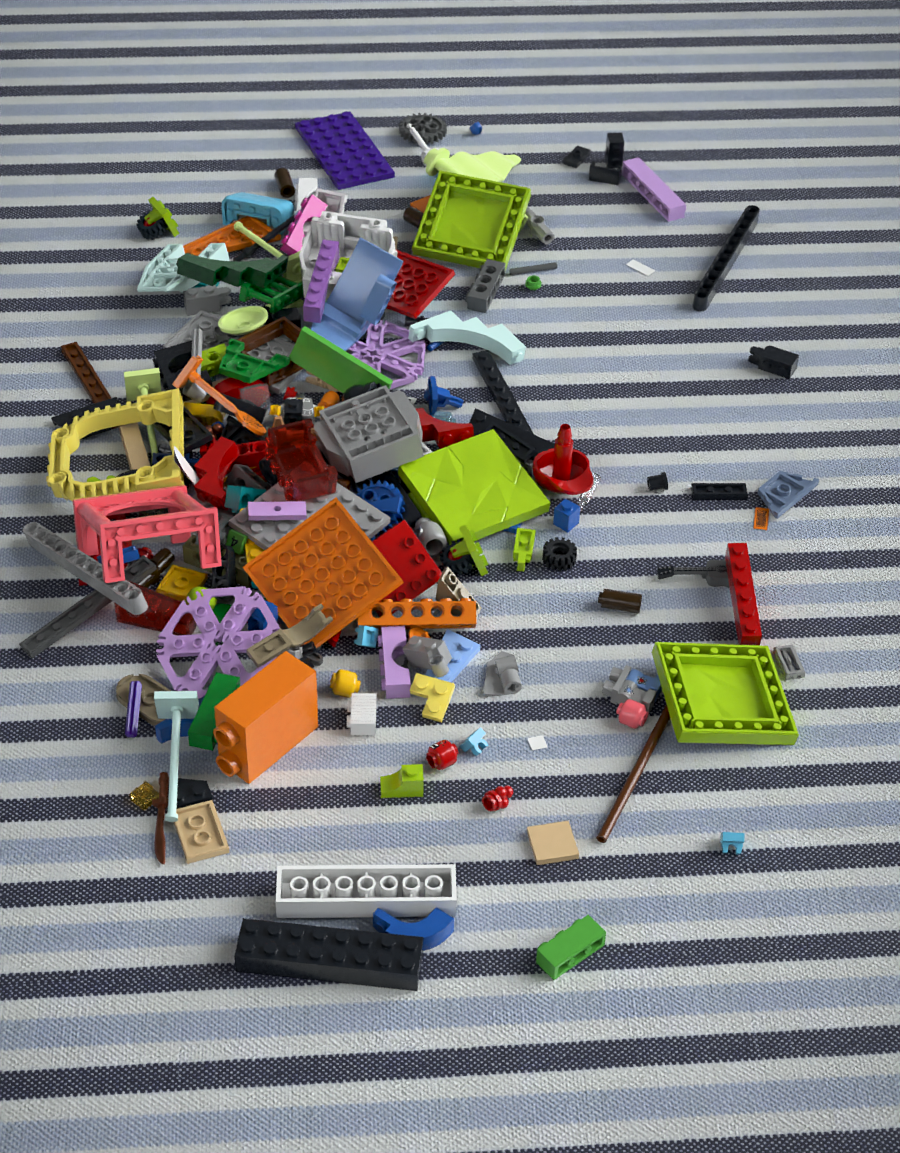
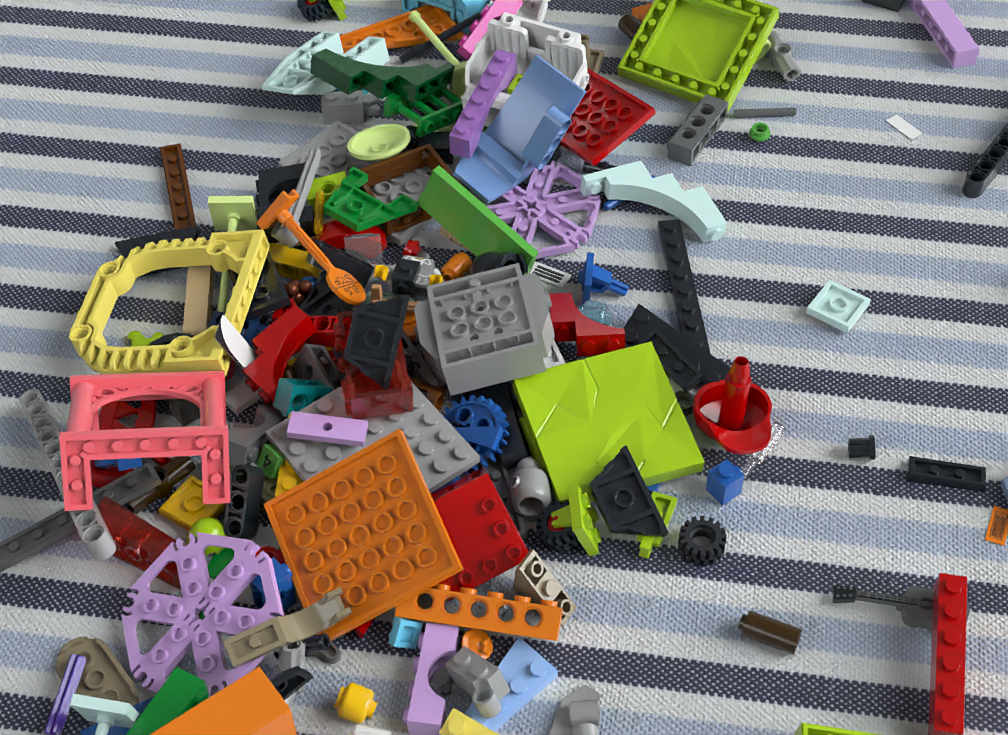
camera: 15 degrees right, 5 degrees up
(216, 377) = (318, 214): none -> yellow piece
(300, 442) = (376, 337): none -> black wing
(501, 532) = (626, 499): none -> black wing
(620, 394) = (838, 306): none -> light aqua plate

